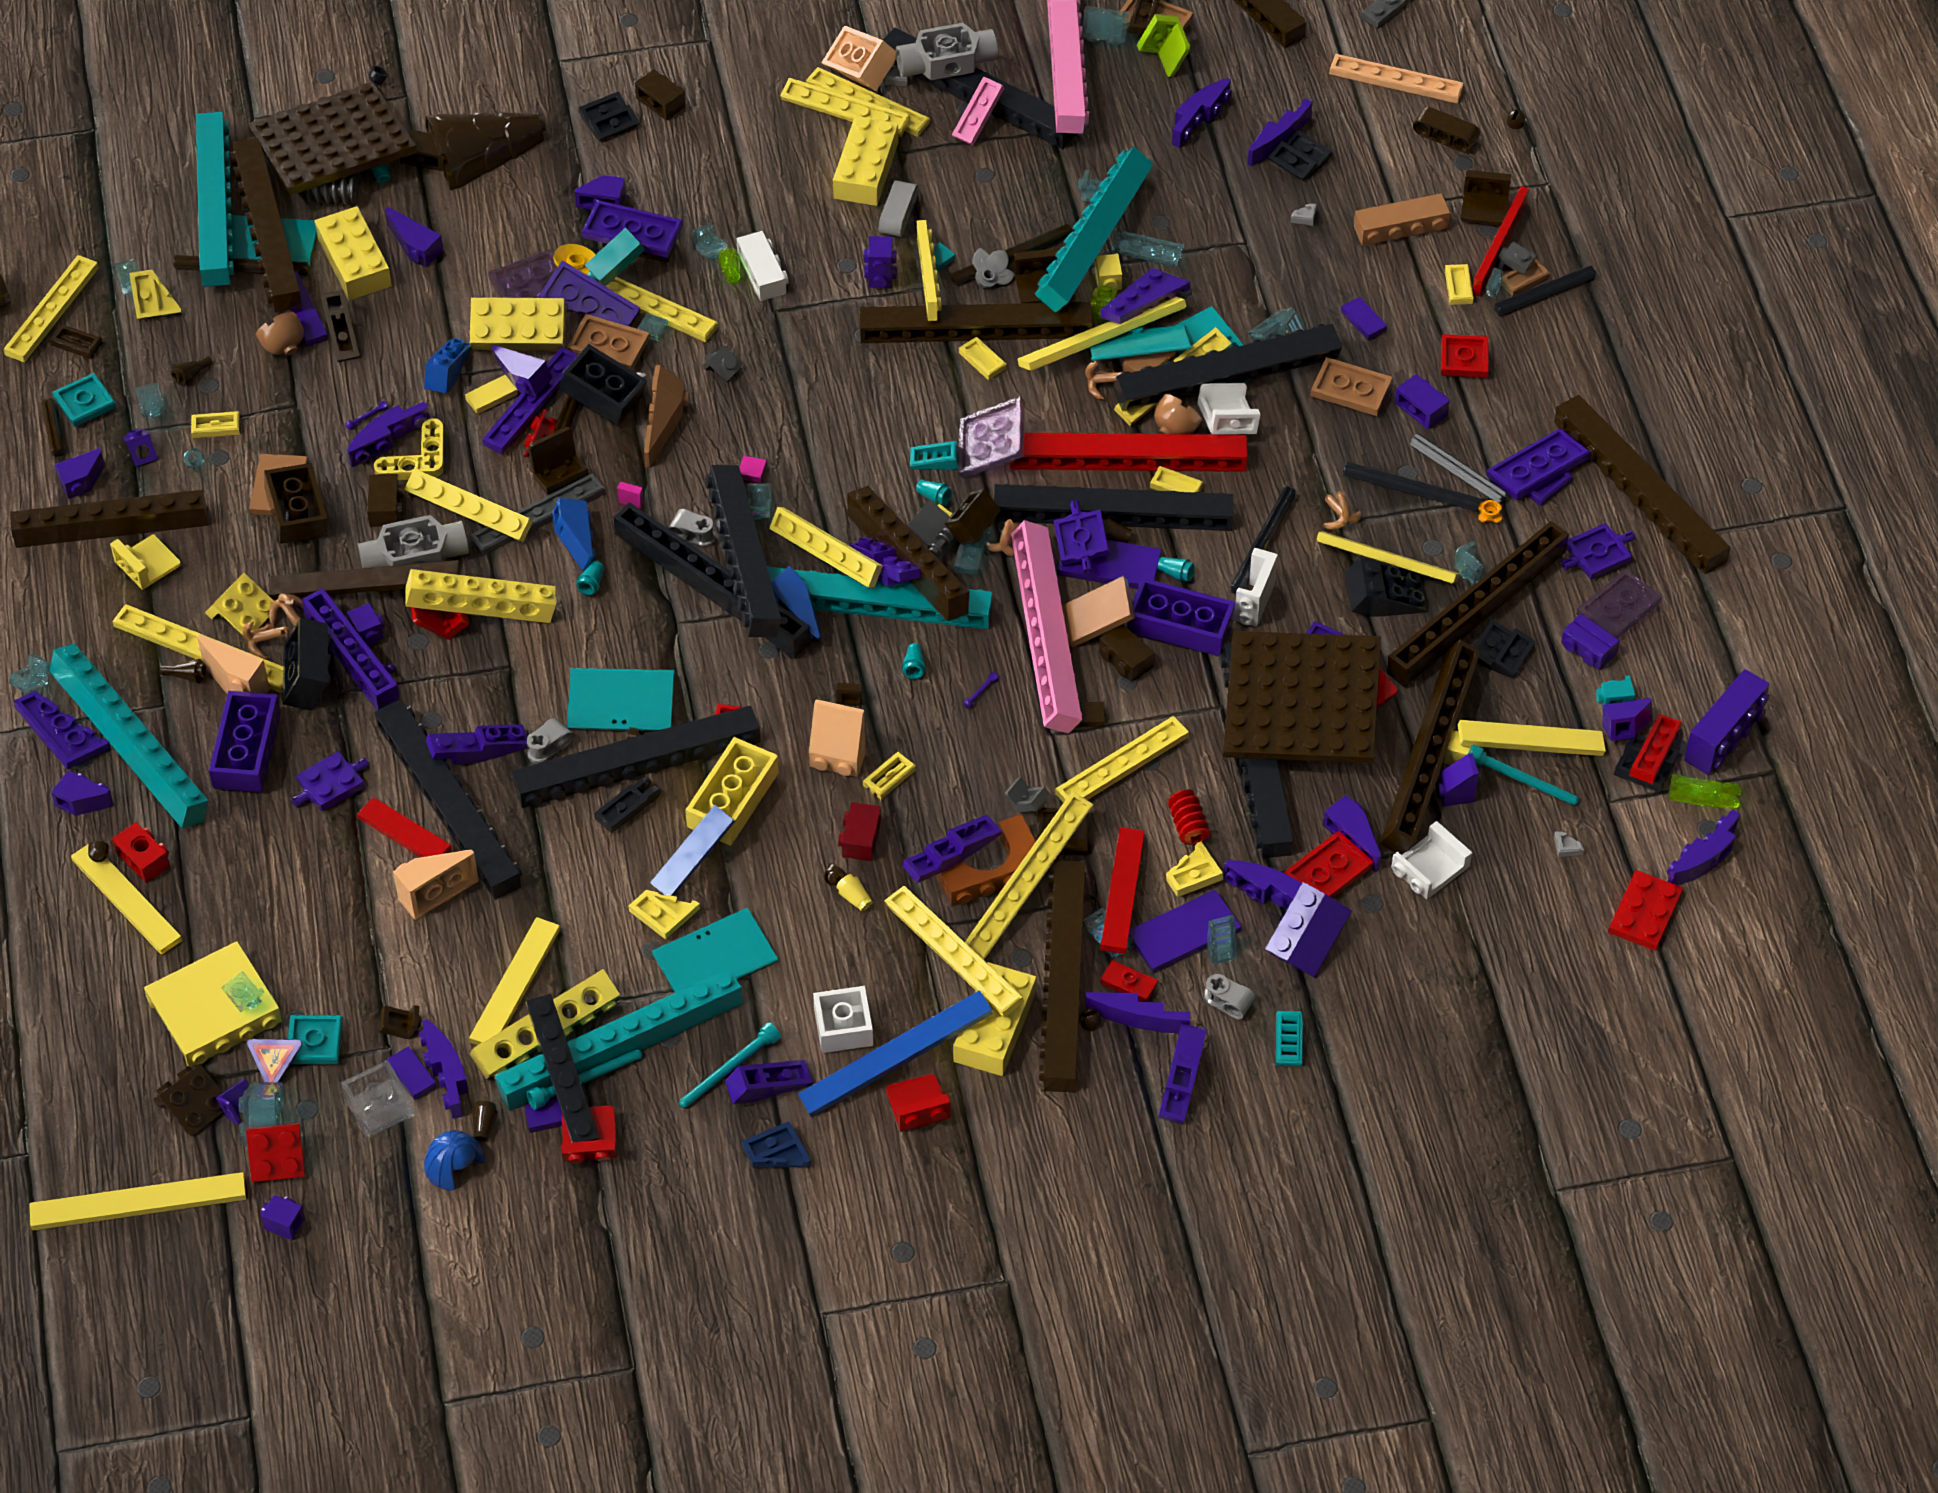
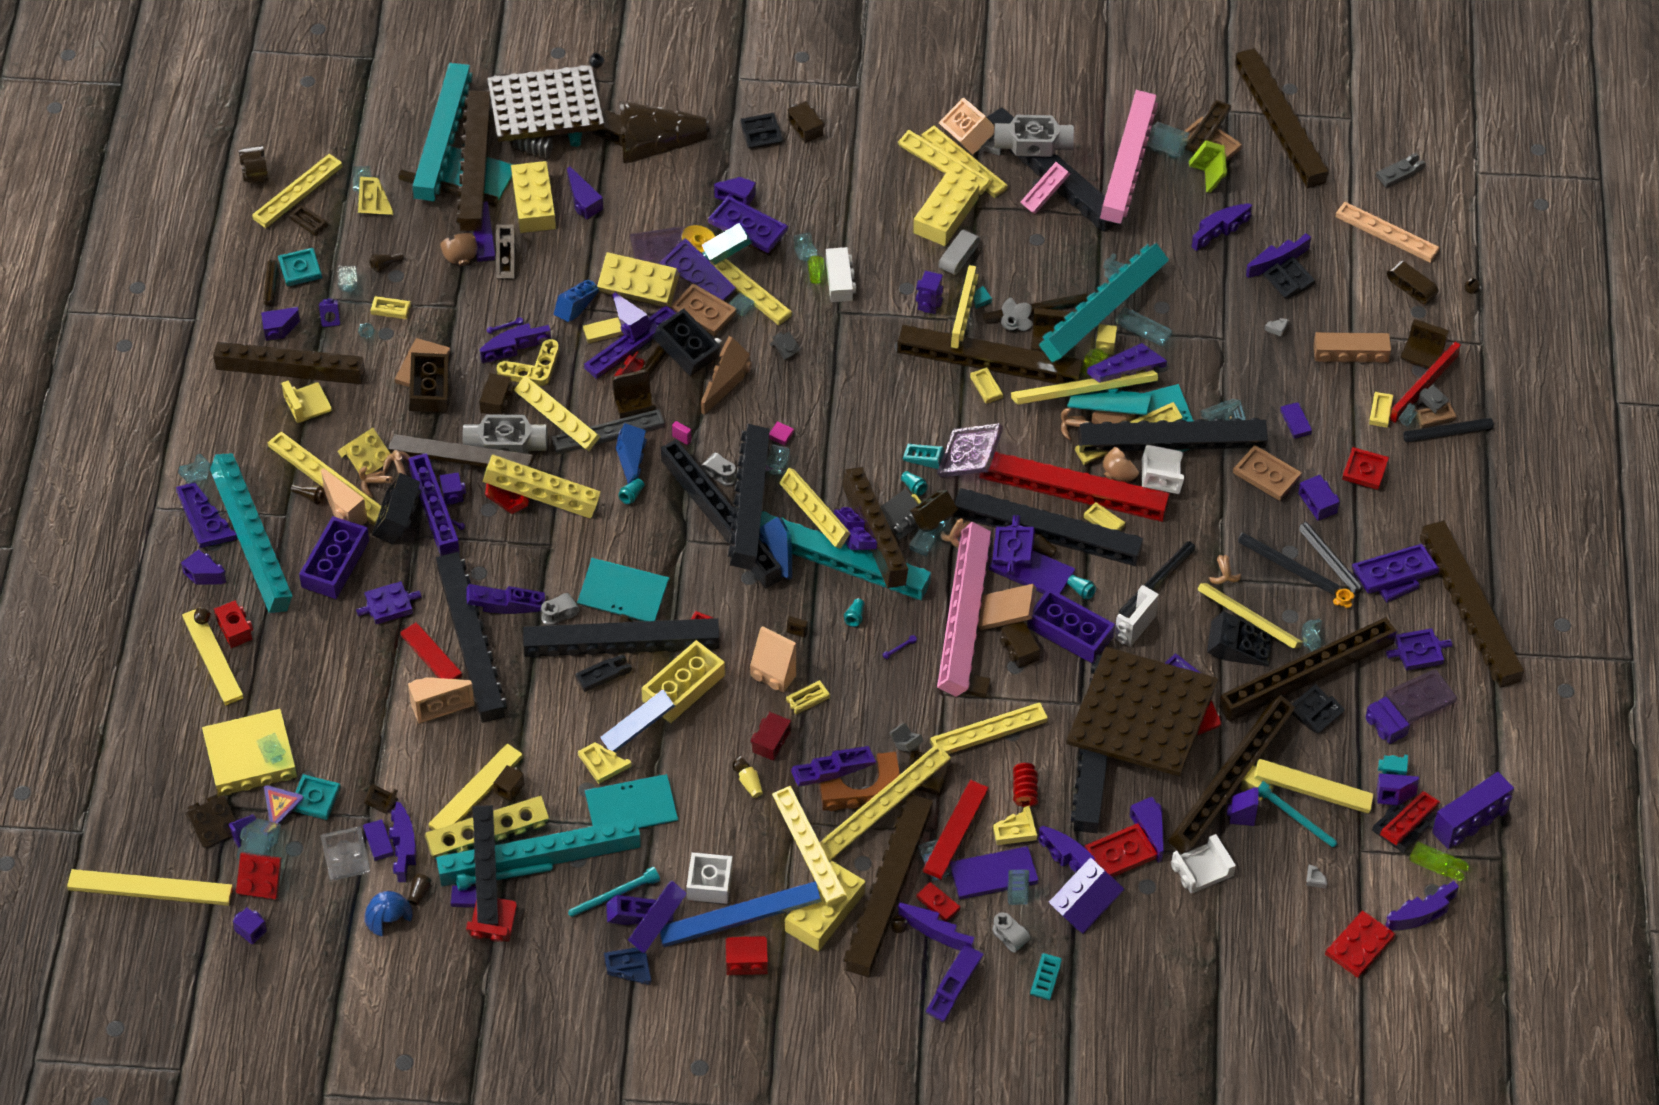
camera: 15 degrees right, 0 degrees up
(555, 964) = (509, 783): none -> dark brown brick
(794, 1081) = (657, 916): none -> dark purple tile

